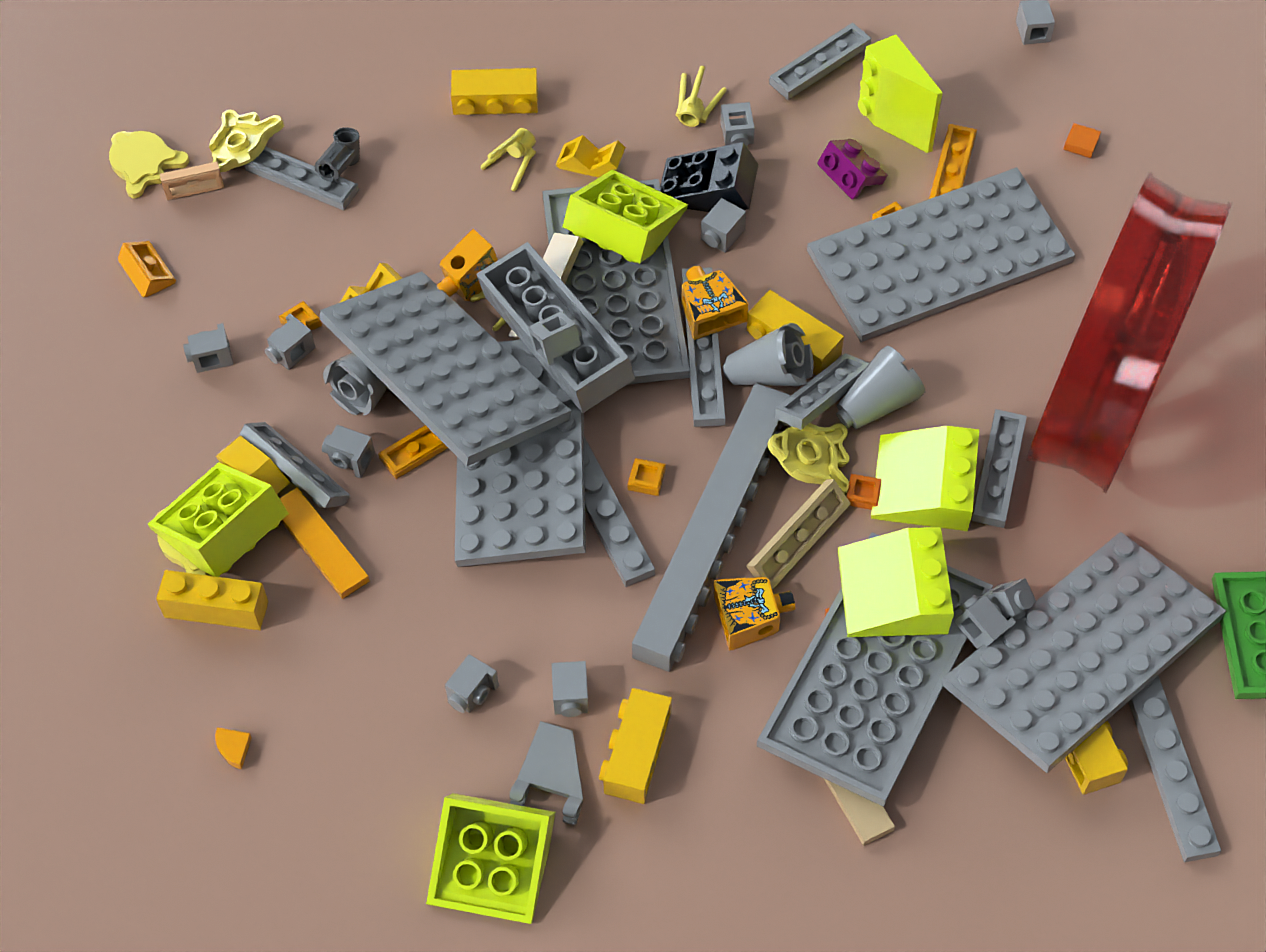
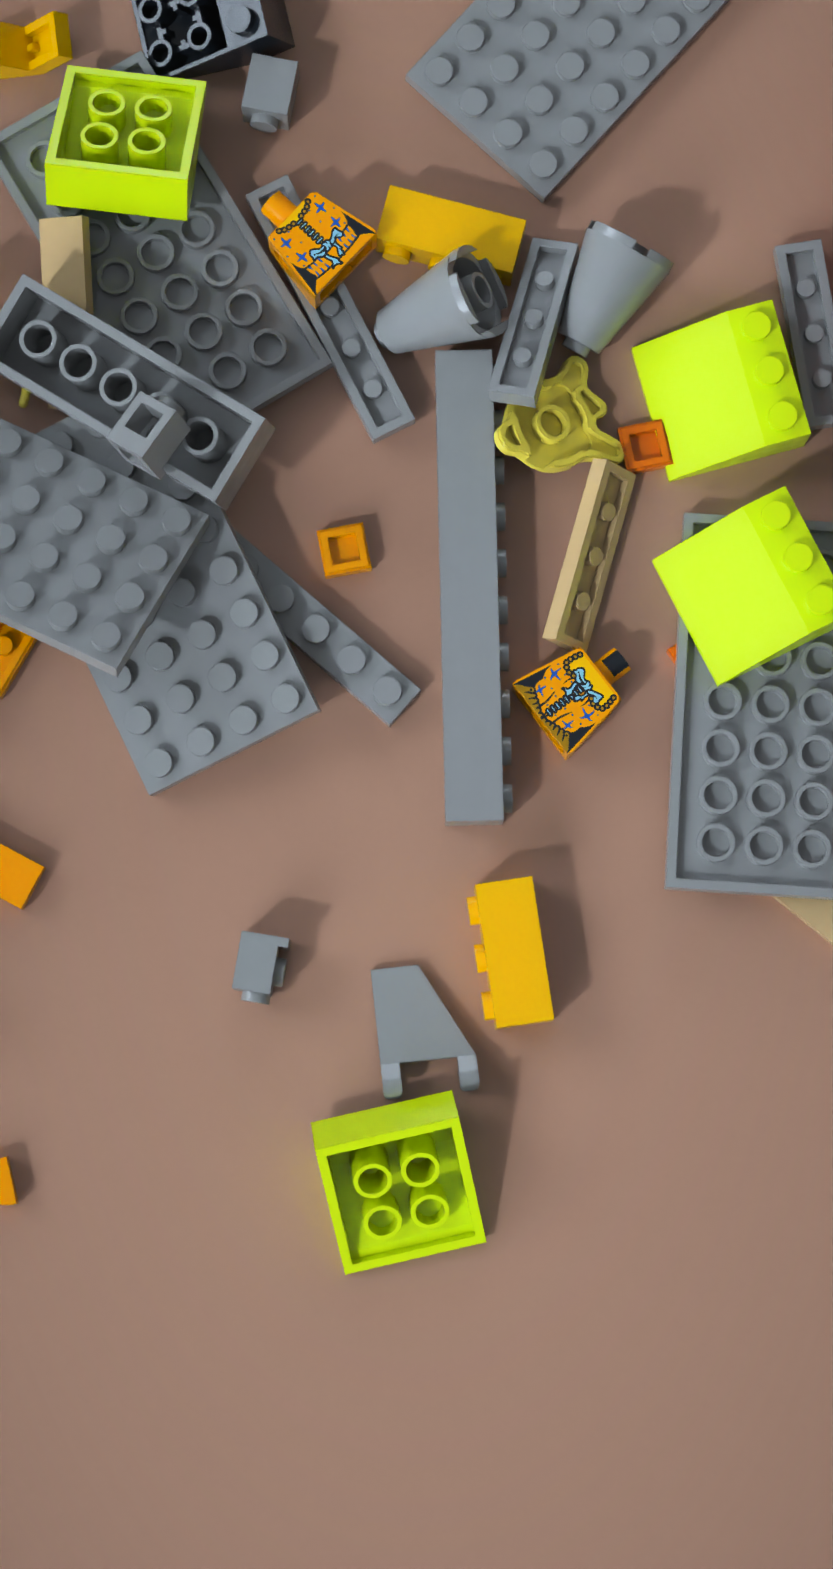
camera: 30 degrees left, 25 degrees up
(570, 688) = (391, 914): light grey brick -> none

